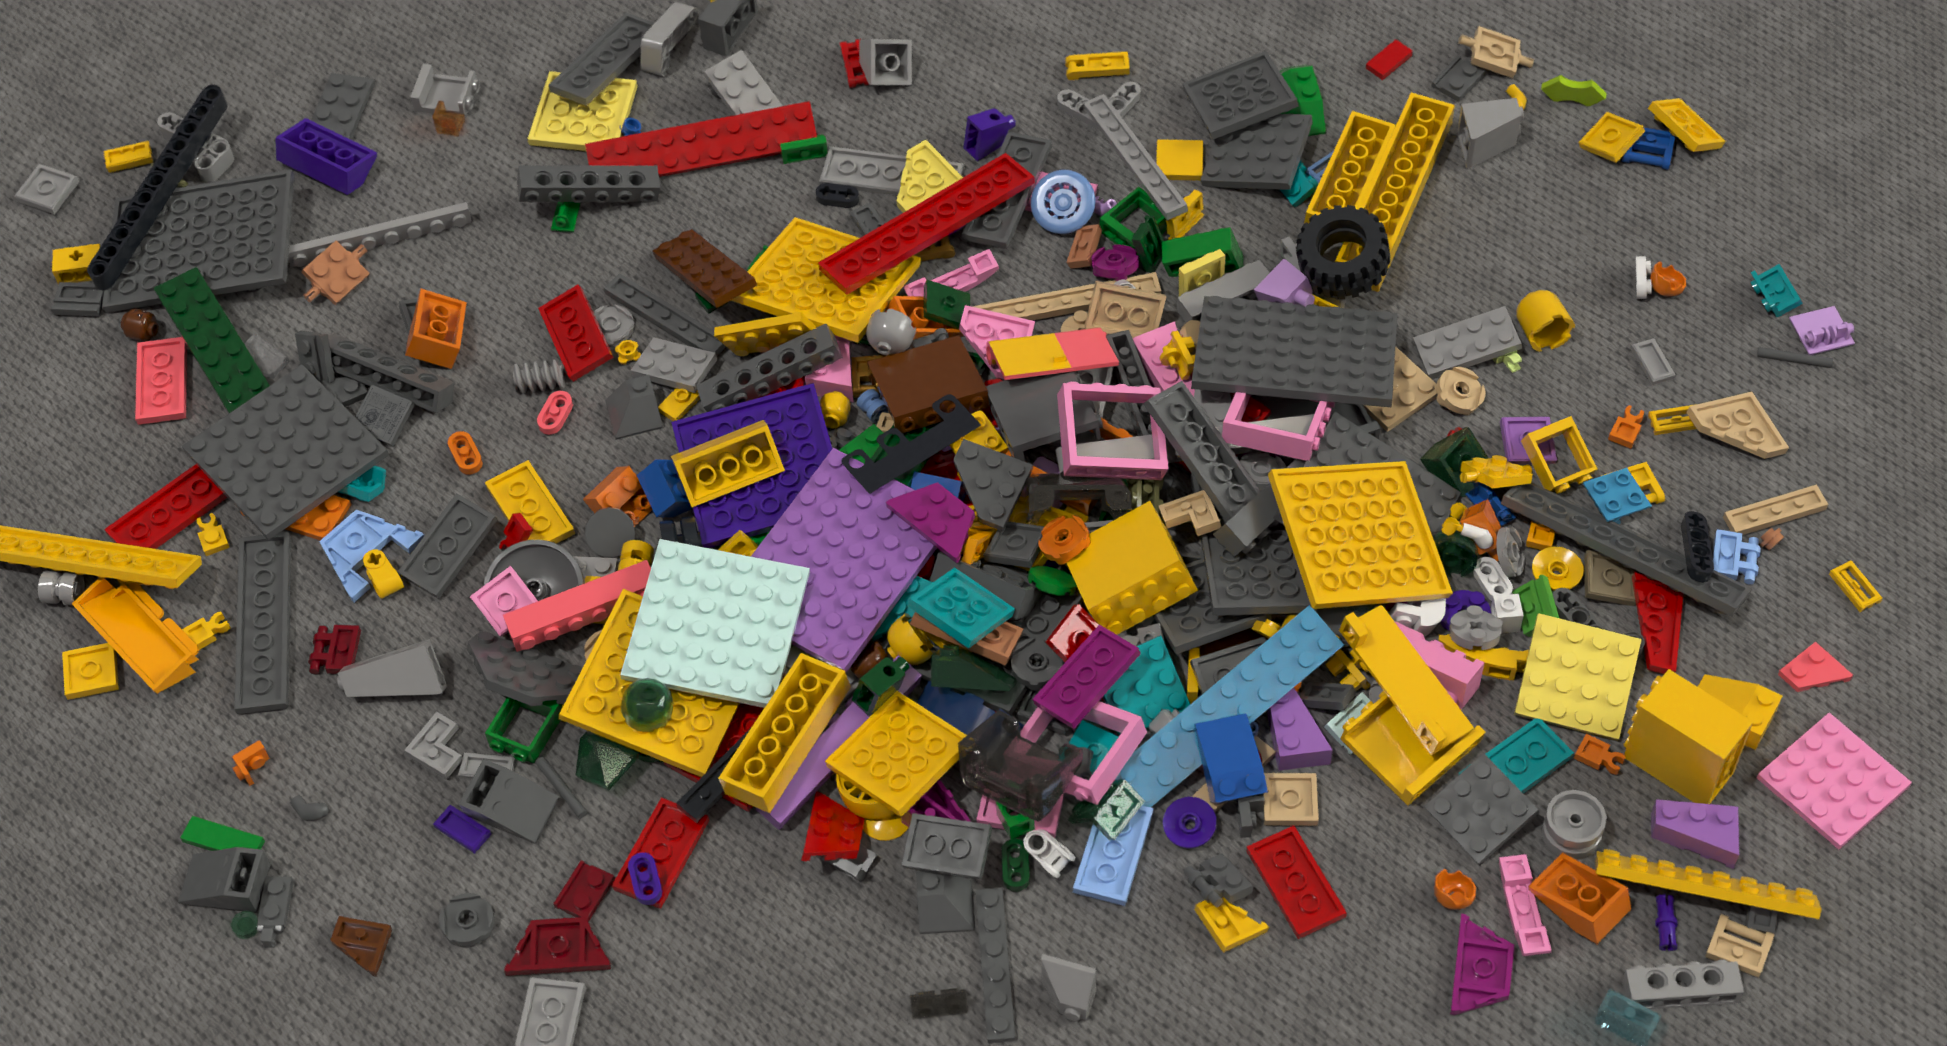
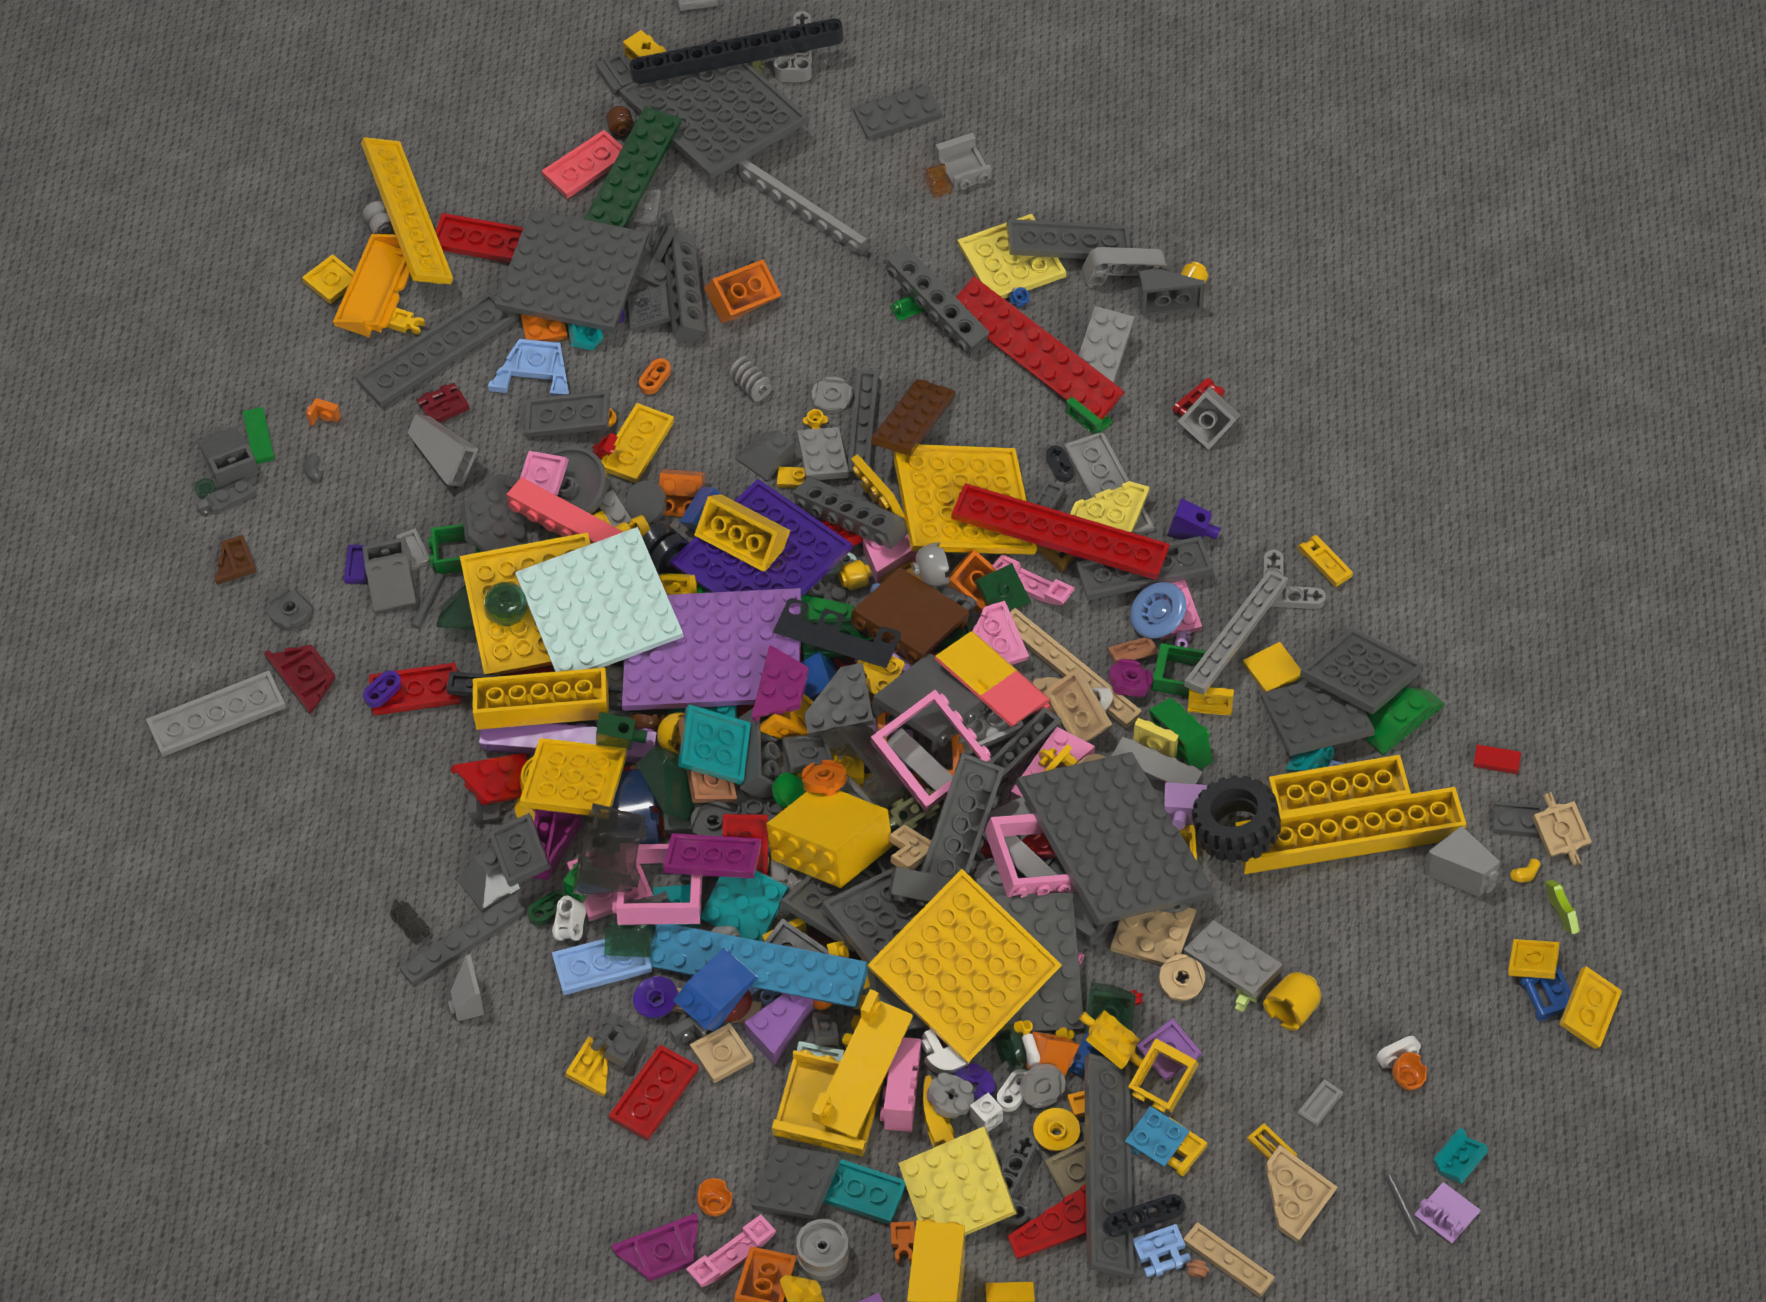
camera: 55 degrees right, 0 degrees up
(128, 156) = (759, 17): yellow plate -> none
(212, 536) = (483, 278): yellow plate -> none
(325, 155) = (845, 129): dark purple slope -> none
(335, 272) = (748, 202): nougat plate -> none
(381, 573) = (518, 391): yellow piece -> none
(430, 749) = (407, 503): light grey plate -> none
(552, 414) = (728, 408): coral plate -> none
(575, 332) = (804, 376): red plate -> none
(584, 891) = (356, 662): dark red plate -> none
(1148, 244) = (1159, 687): dark green plate -> none
(1535, 598) = (1010, 1128): bright green plate -> none
(1627, 428) = (1231, 1115): orange plate -> none

